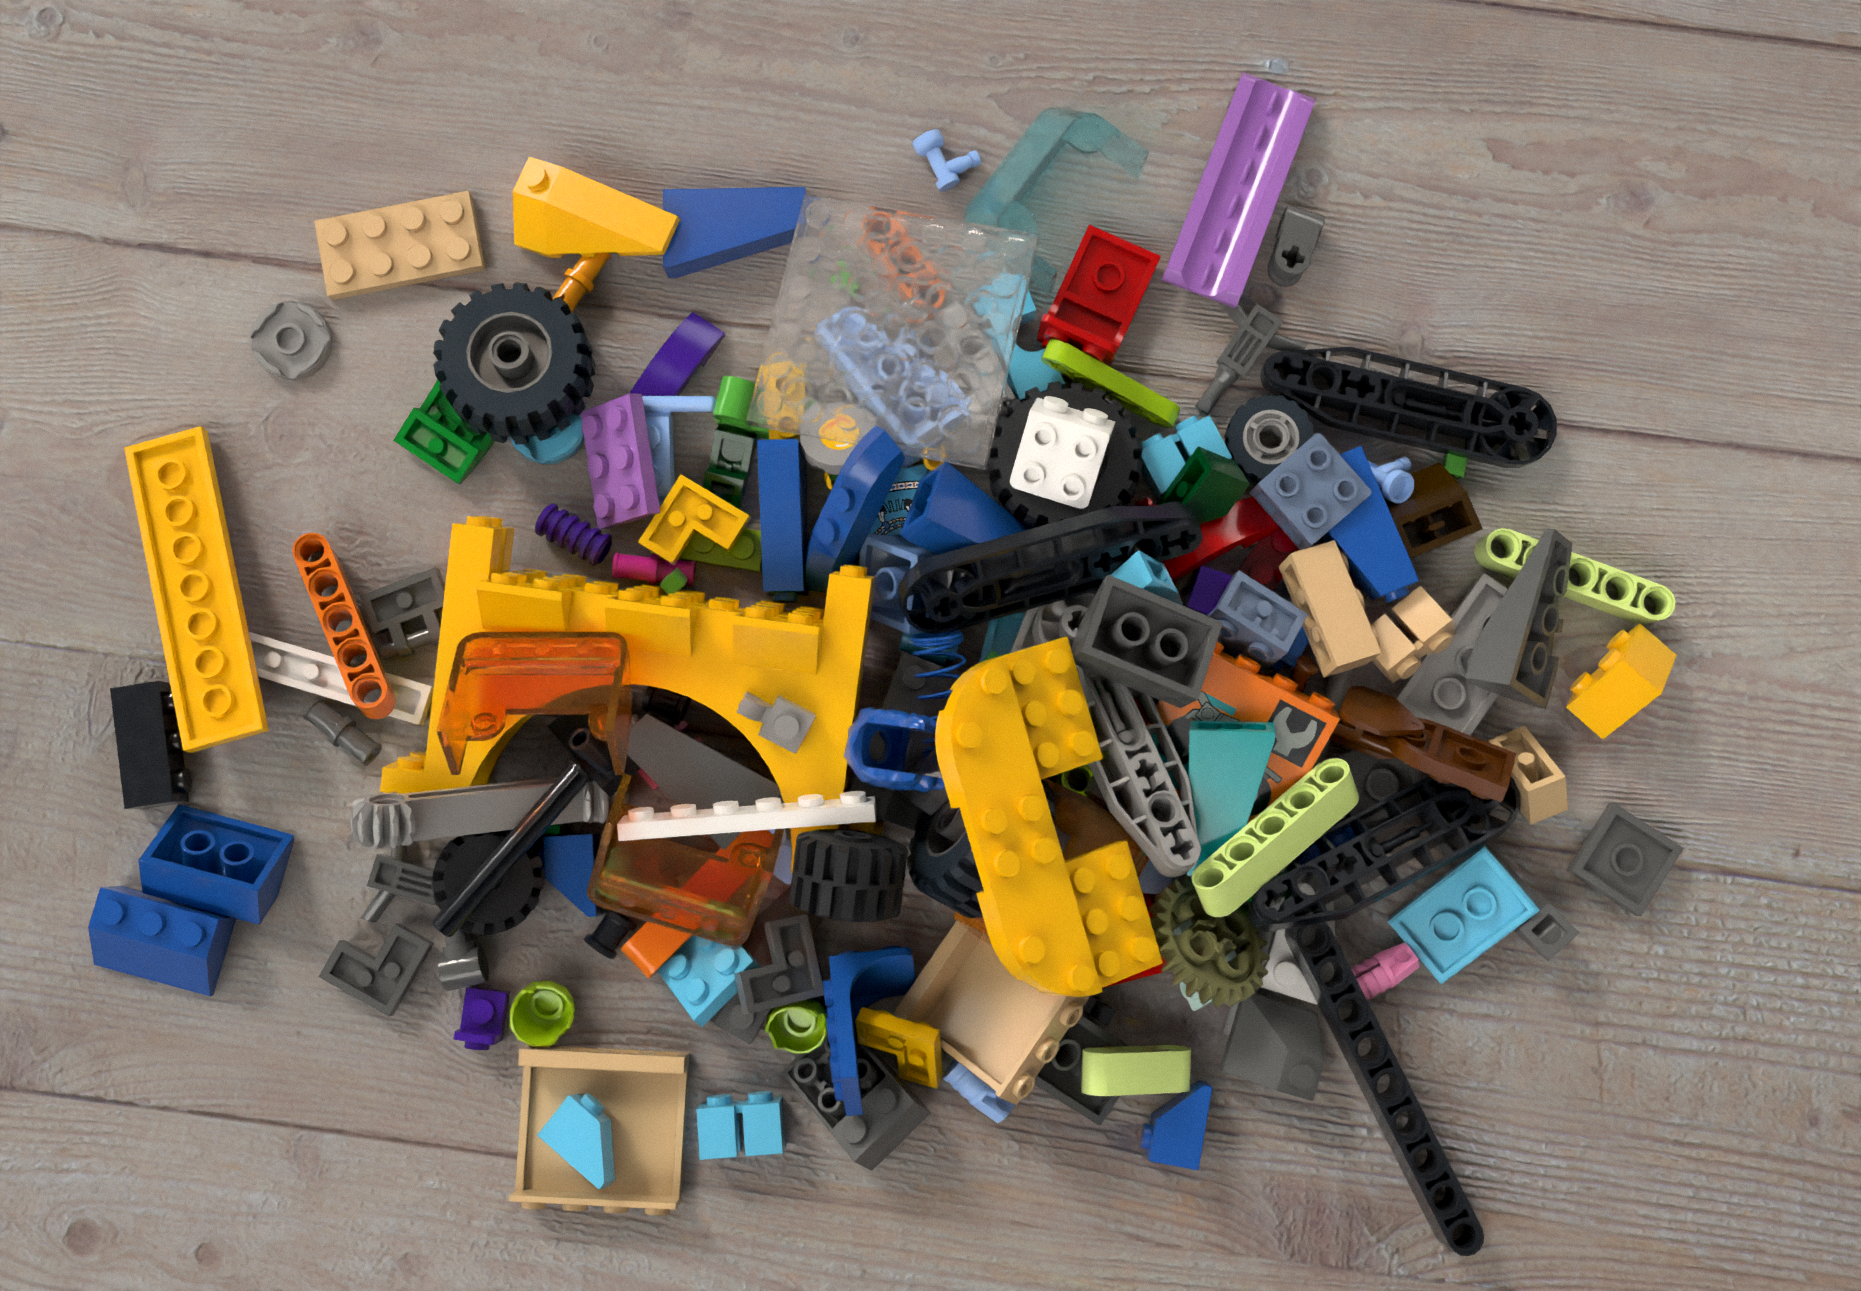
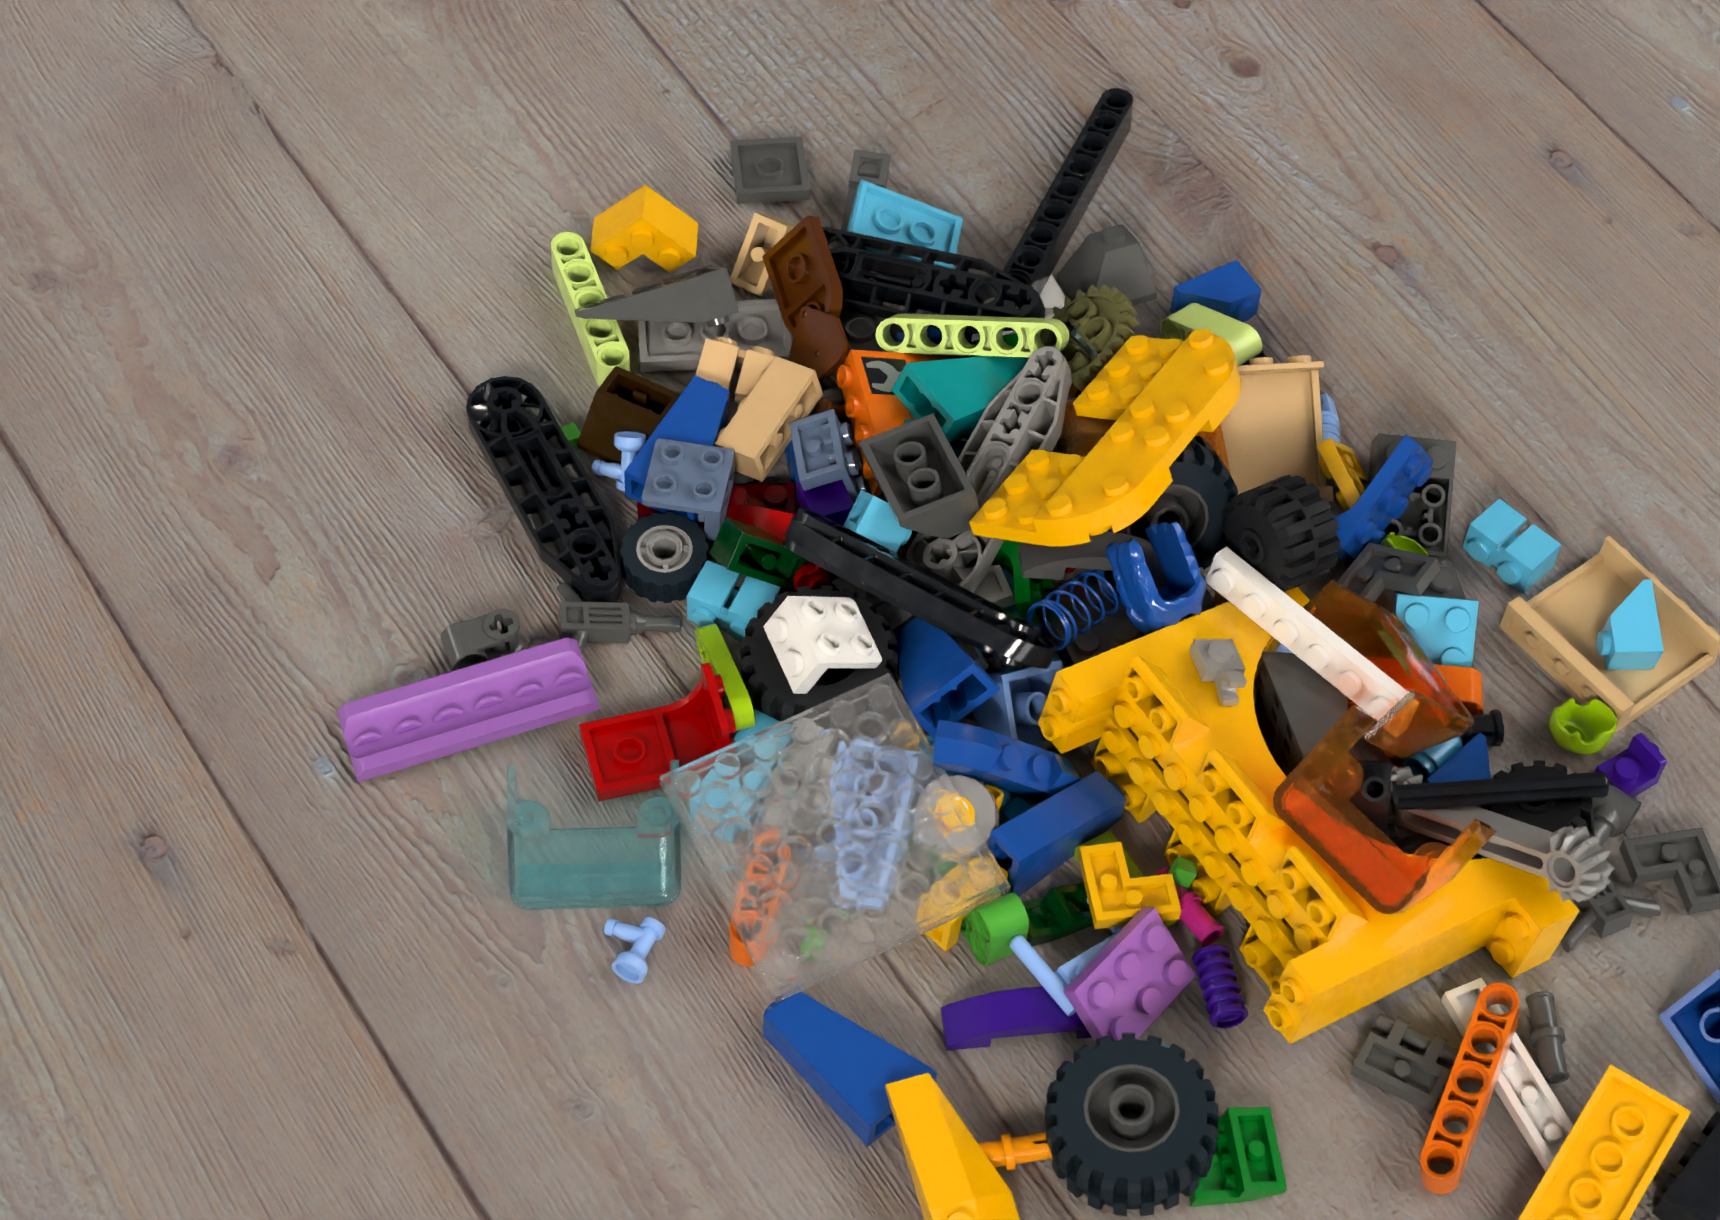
camera: 135 degrees left, 30 degrees down
(1385, 970) = (985, 249): bright pink hinge -> none

